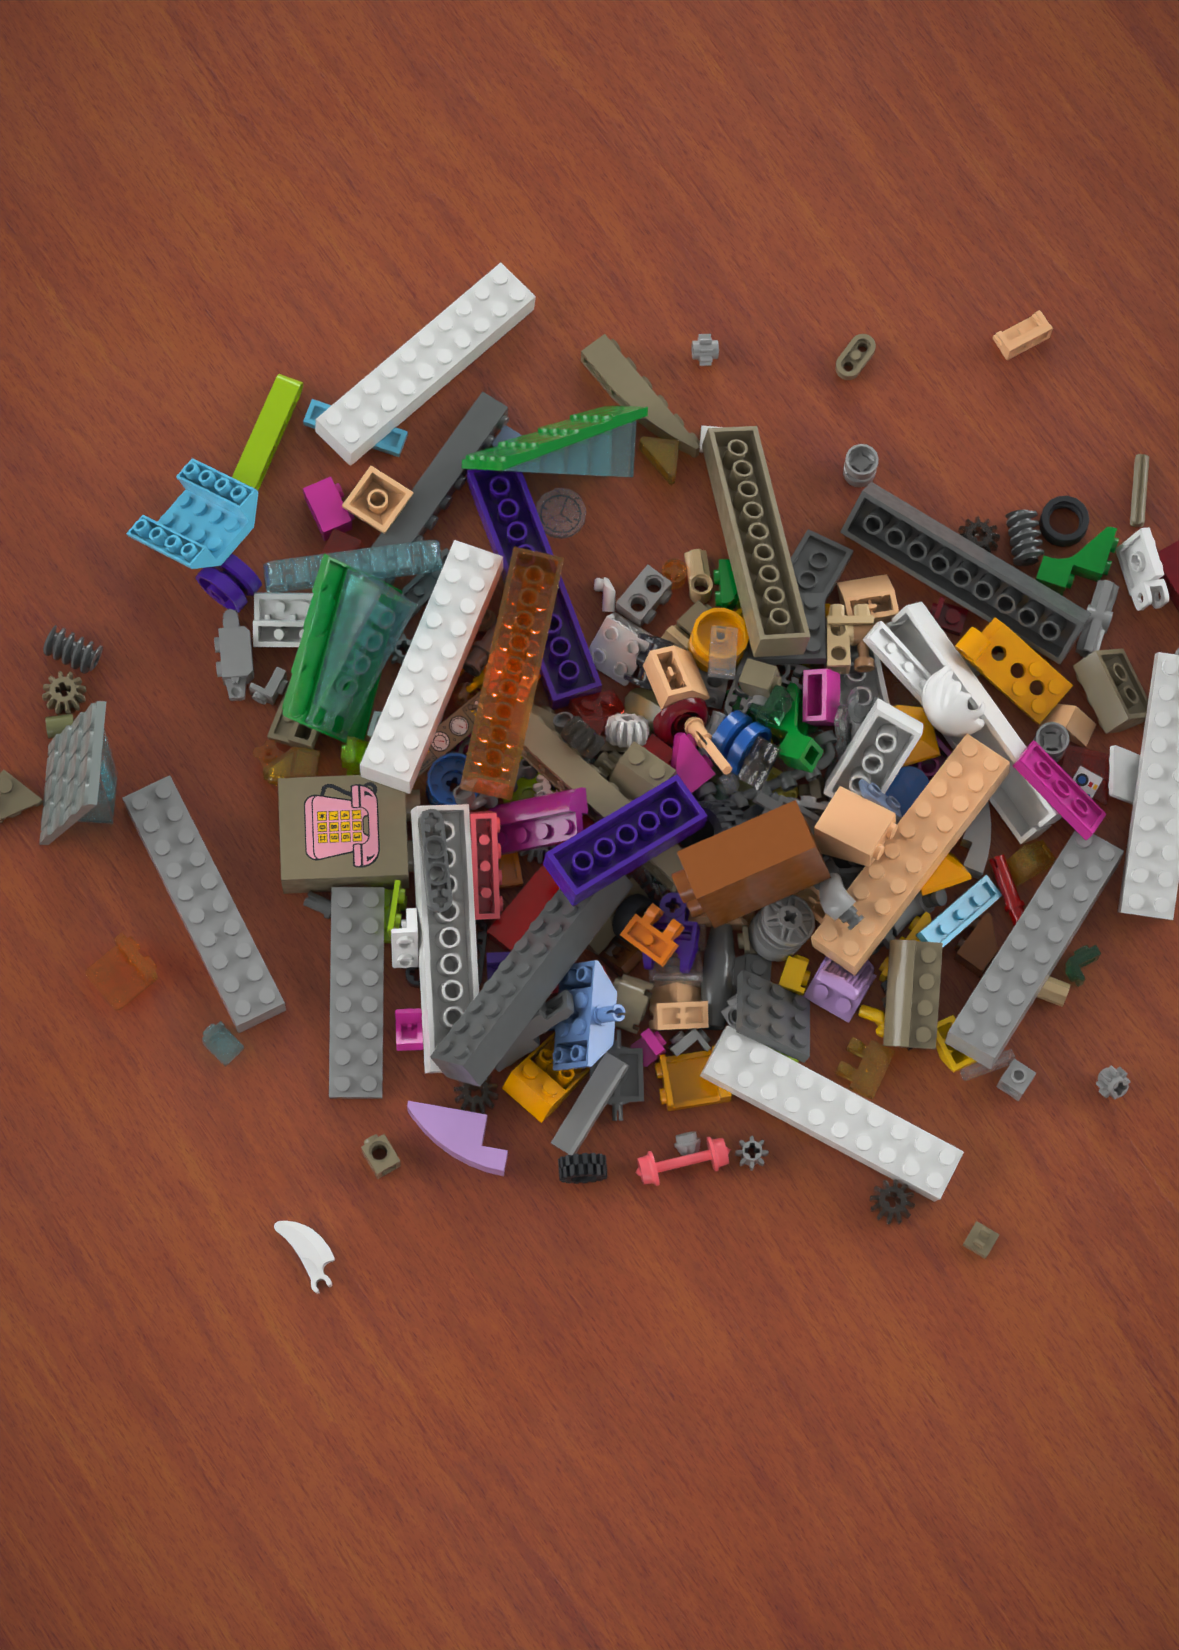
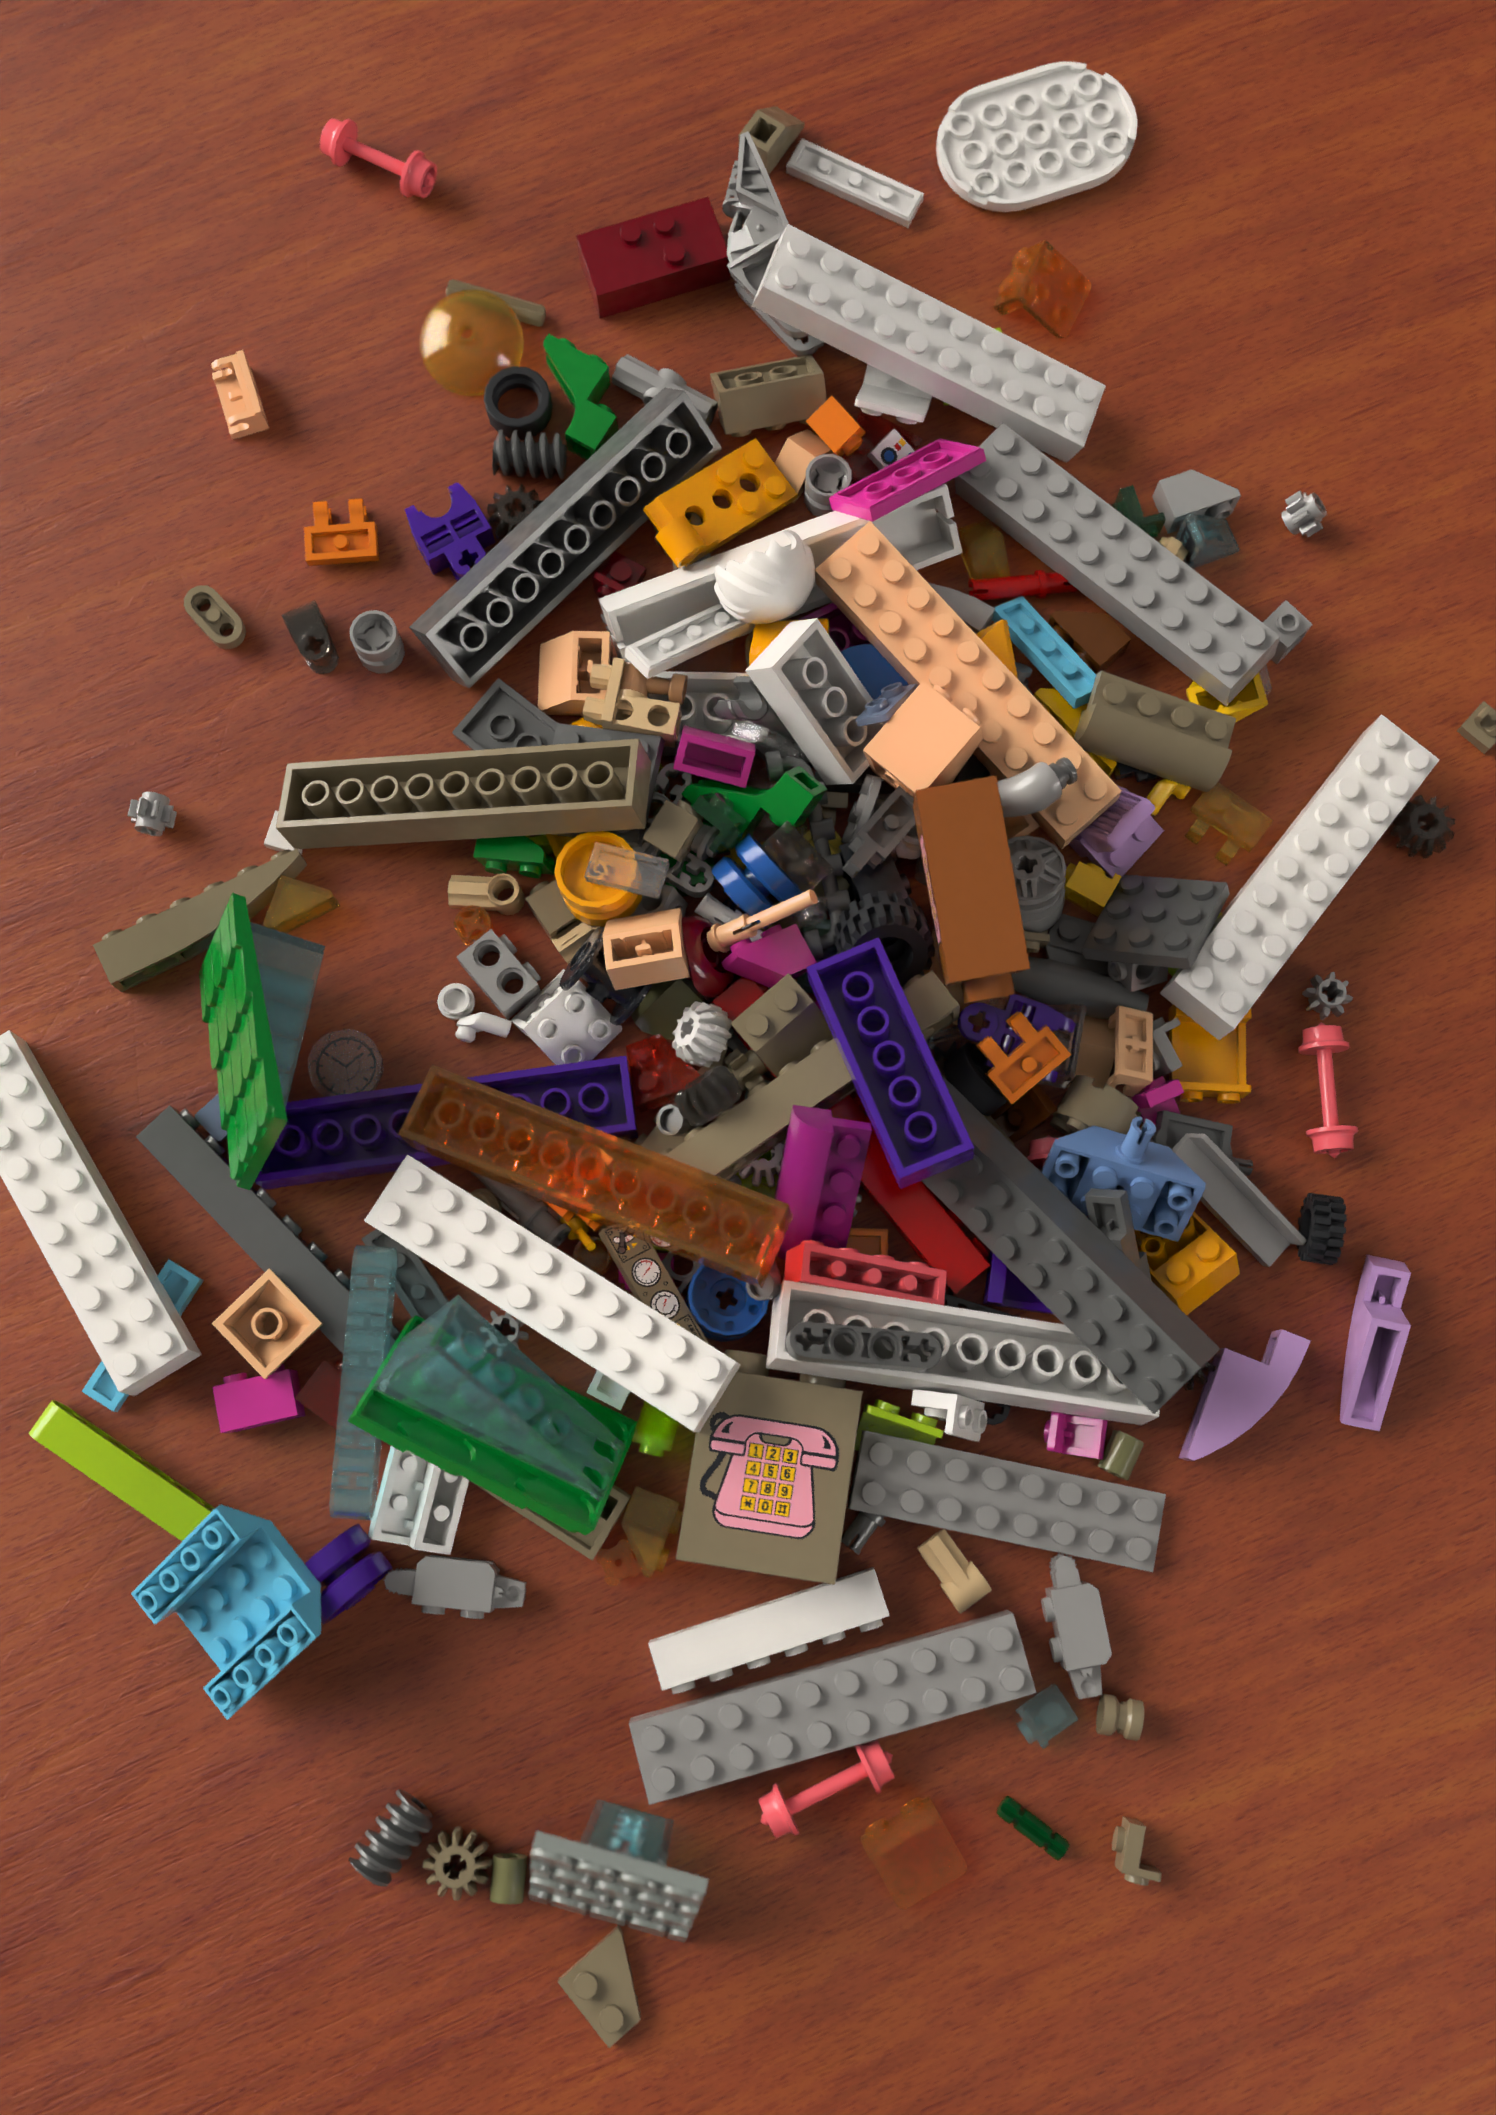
camera: 75 degrees left, 5 degrees up
(132, 883) = (779, 1811): none -> coral piece
(150, 1047) = (1032, 1828): none -> dark green axle
(150, 1108) = (1128, 1845): none -> dark tan bracket
(230, 1092) = (1123, 1716): none -> dark tan wheel
(245, 856) = (767, 1629): none -> white brick
(276, 685) = (516, 1530): light grey bracket -> none
(284, 1052) = (1078, 1627): none -> light grey hinge
(300, 972) = (958, 1577): none -> tan piece
(310, 1248) = (1370, 1642): white piece -> none
(383, 1166) = (1269, 1513): dark tan brick -> none
(402, 1063) = (1121, 1454): none -> olive piece
(513, 1218) = (1374, 1342): none -> lavender slope
(620, 573) = (456, 1001): none -> white plate
(687, 1143) = (1298, 1078): light grey plate -> none
(859, 420) = (311, 635): none -> clear smoke piece
(930, 428) = (341, 542): none -> orange plate
(950, 501) = (454, 538): none -> dark purple piece
(1077, 1018) = (1206, 539): none -> clear light blue slope
(1091, 737) = (836, 427): none -> orange slope
(1104, 1000) = (1193, 494): none -> light grey slope
(1105, 494) = (469, 363): none -> clear yellow dish
(1142, 570) = (626, 318): white plate -> none

